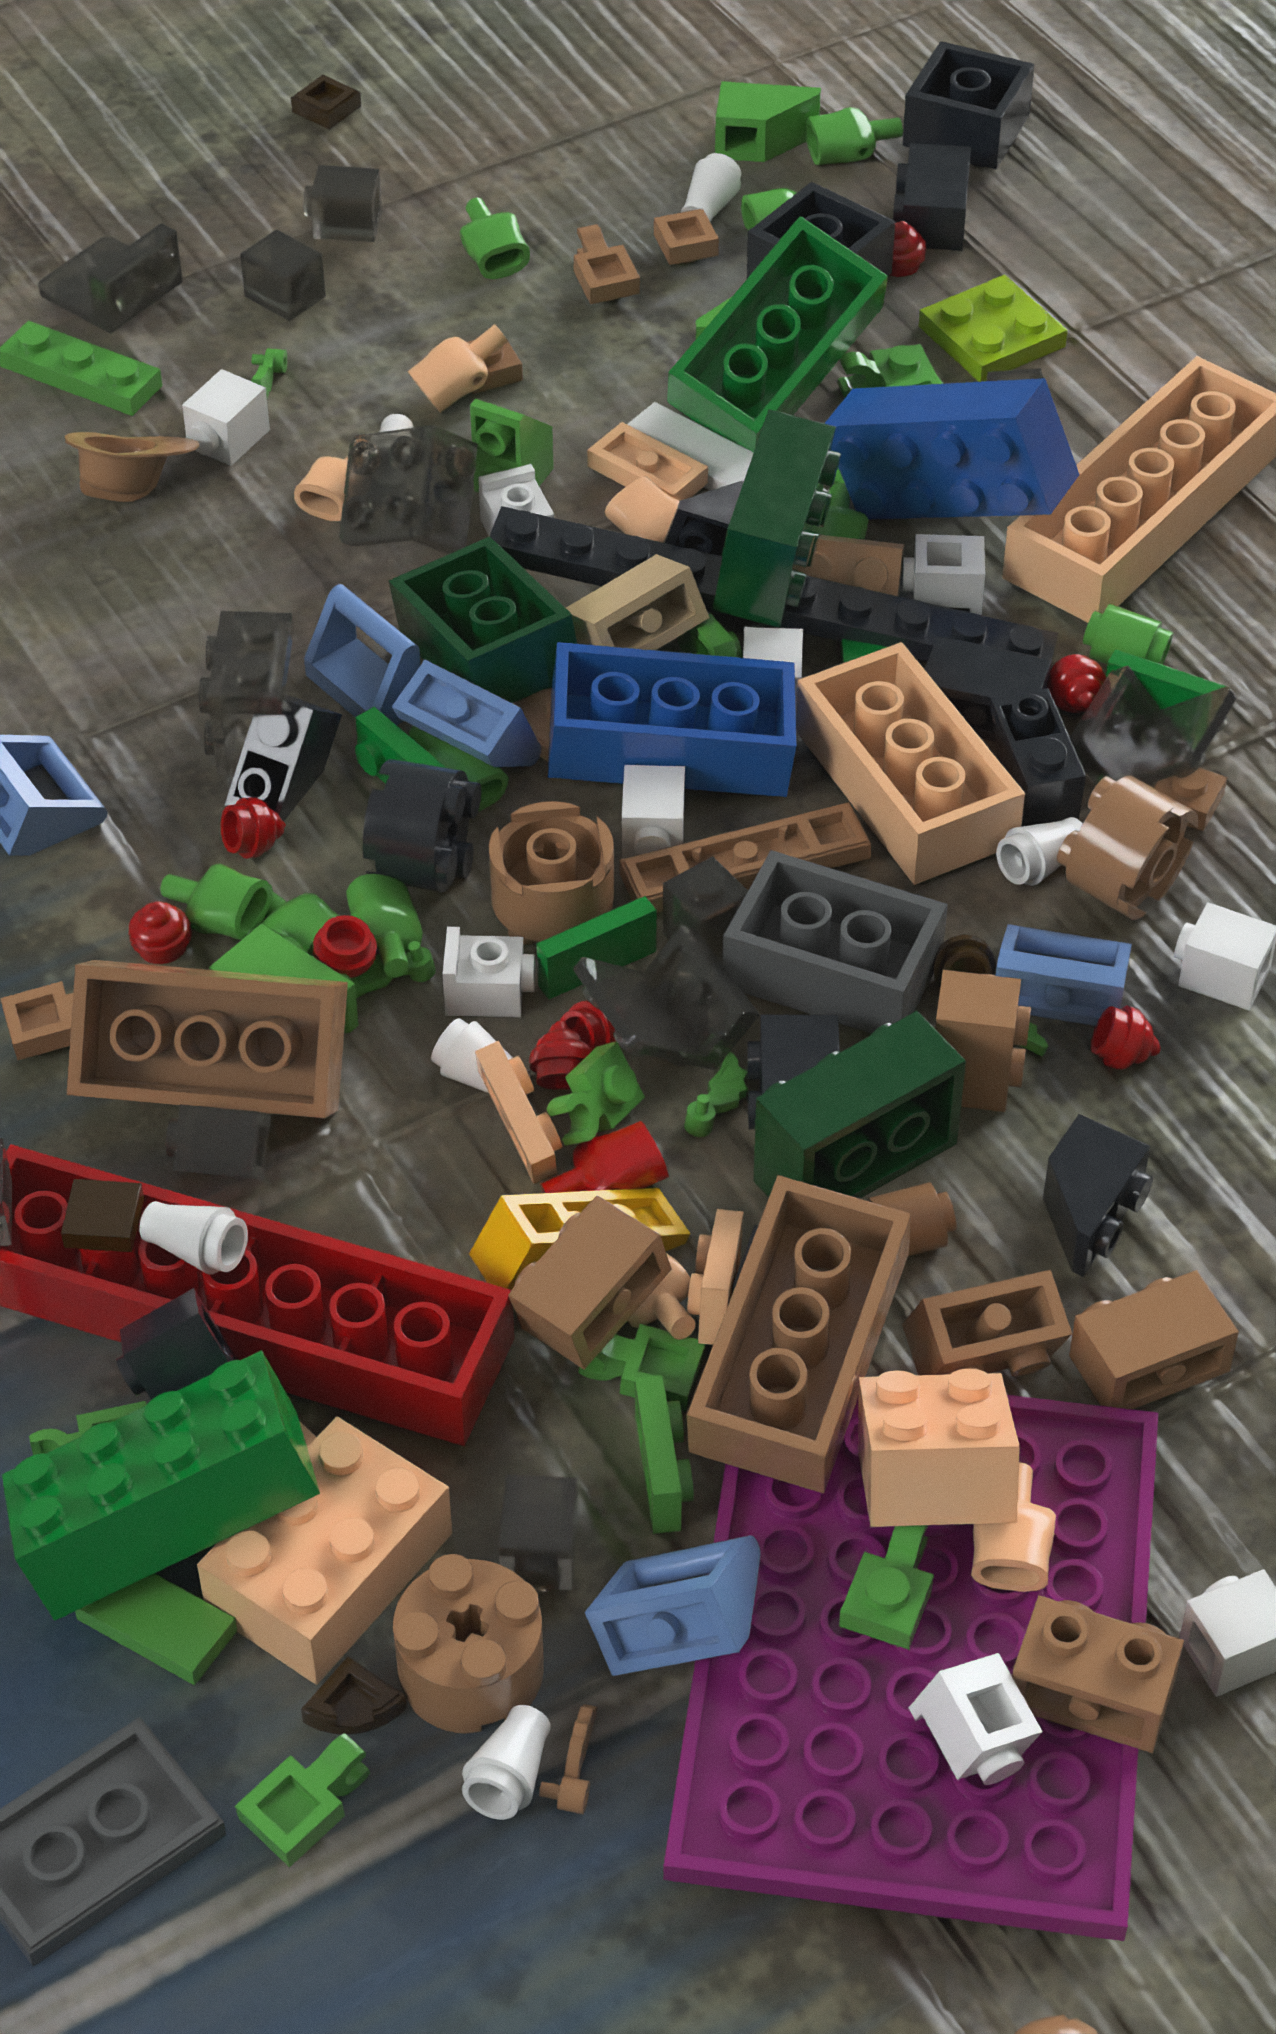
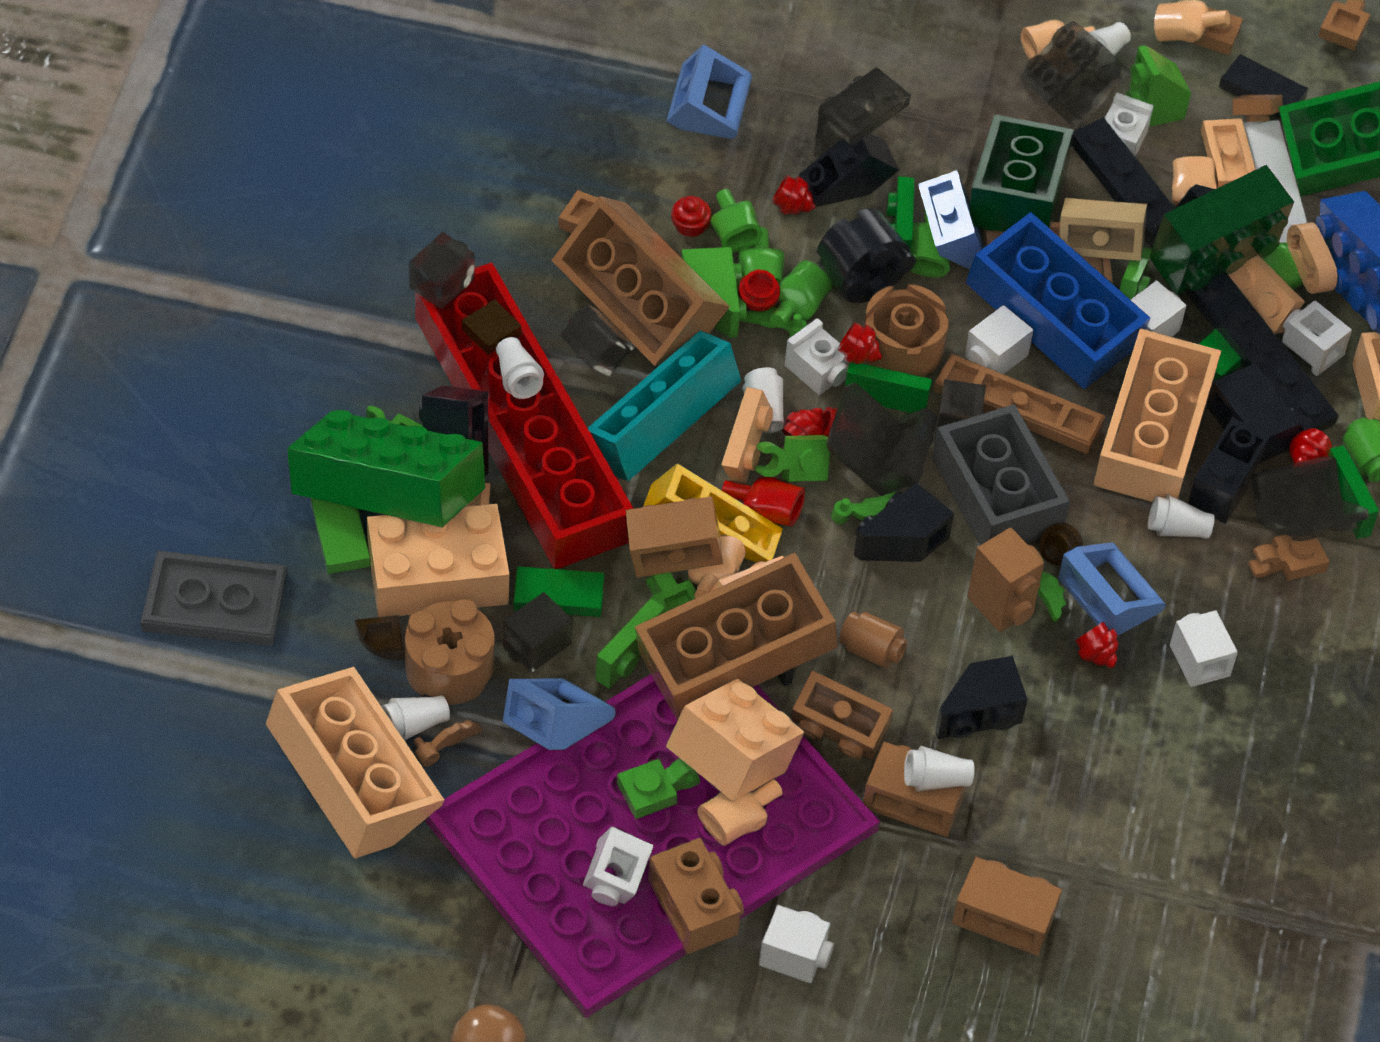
camera: 40 degrees right, 5 degrees up
(301, 1804) = (308, 655): bright green plate -> none
(348, 667) = (942, 142): medium blue tile -> none
(386, 1142) = (665, 404): none -> teal brick
(511, 1883) = (352, 760): none -> light nougat slope
(516, 1445) = (572, 590): none -> green tile
(532, 915) = (860, 345): none -> red plate
(598, 384) = (1252, 78): none -> black tile
(623, 400) = (1257, 107): none -> medium nougat plate
(862, 1112) = (899, 570): dark green brick -> none
(865, 498) = (1312, 258): none -> light nougat beam
(1128, 845) = (1213, 550): medium nougat brick -> none
(1175, 1298) = (936, 770): none -> white cone

